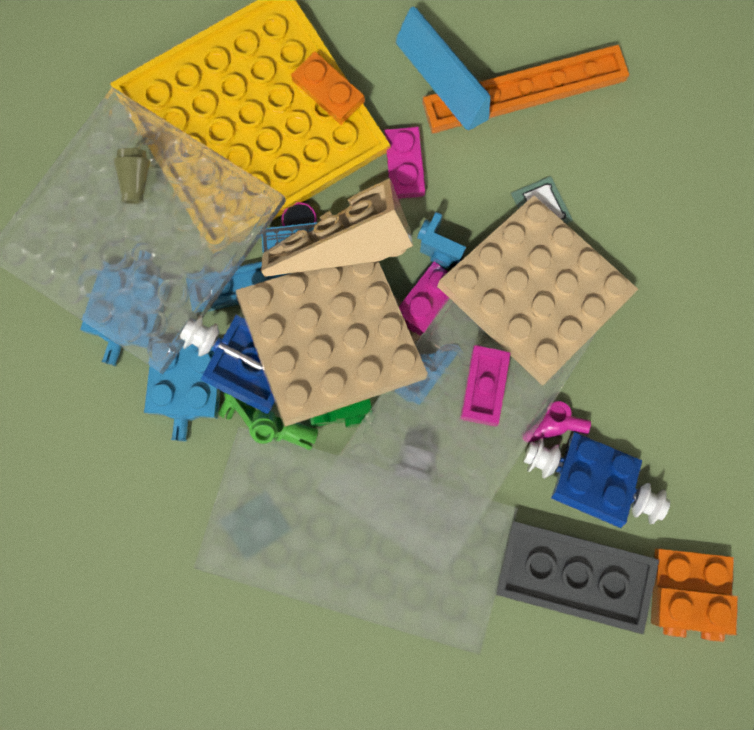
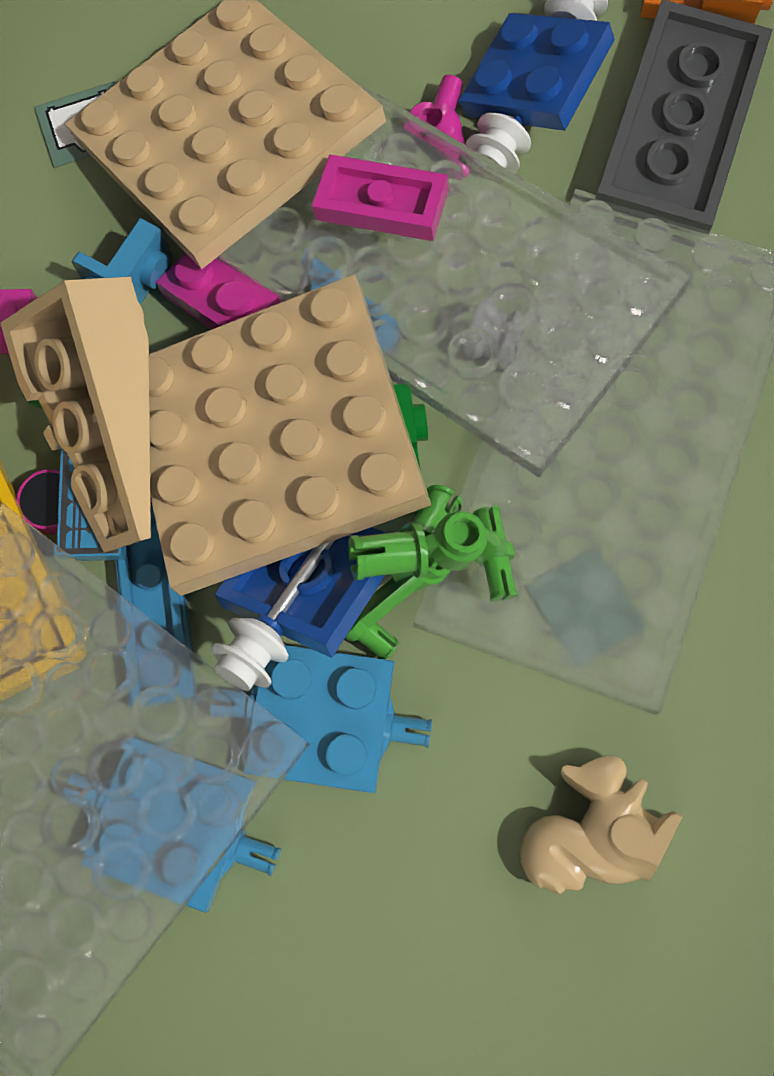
camera: 85 degrees left, 5 degrees down
(123, 543) = (612, 842): none -> tan animal
(262, 440) = (453, 544): none -> bright green pin

